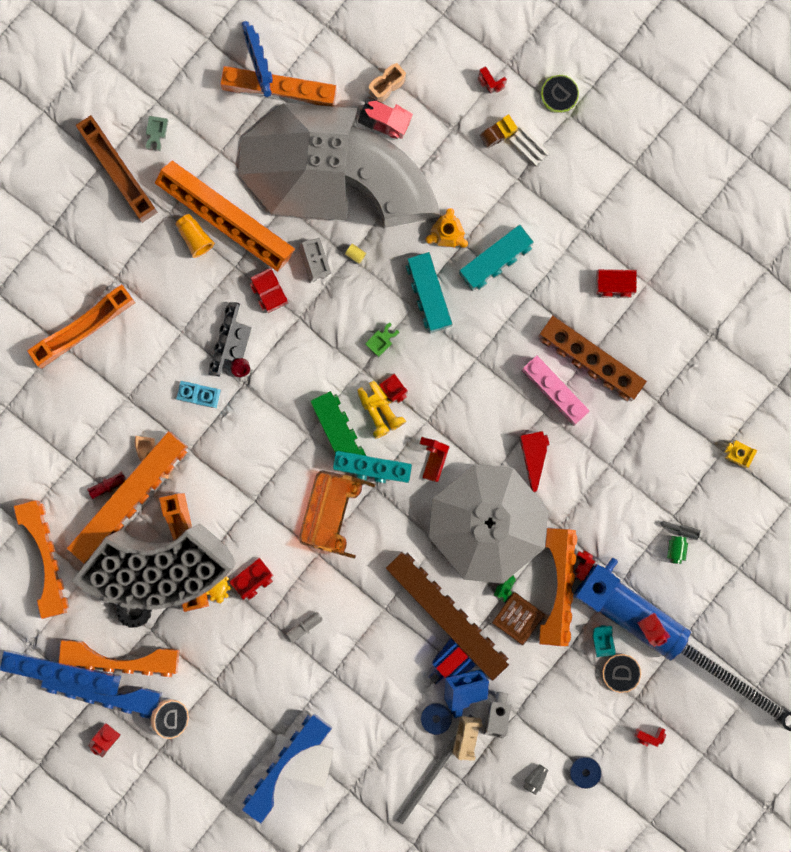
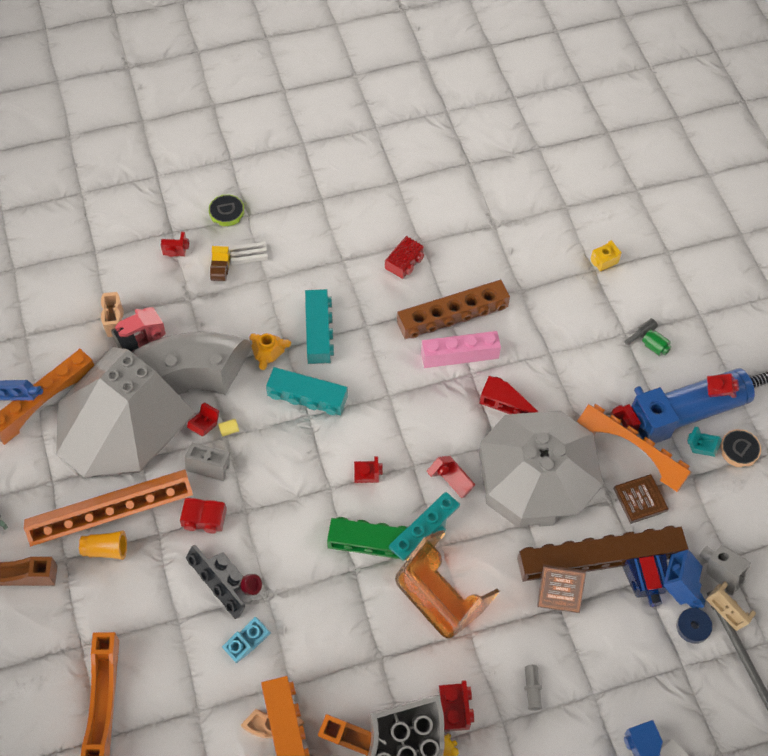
camera: 50 degrees left, 25 degrees down
(346, 230) = (204, 420): none -> red bracket
(380, 341) = (318, 454): bright green plate -> none
(380, 400) = (368, 488): yellow piece -> none
(394, 602) = (561, 588): none -> tile
(503, 590) = (608, 494): green piece -> none

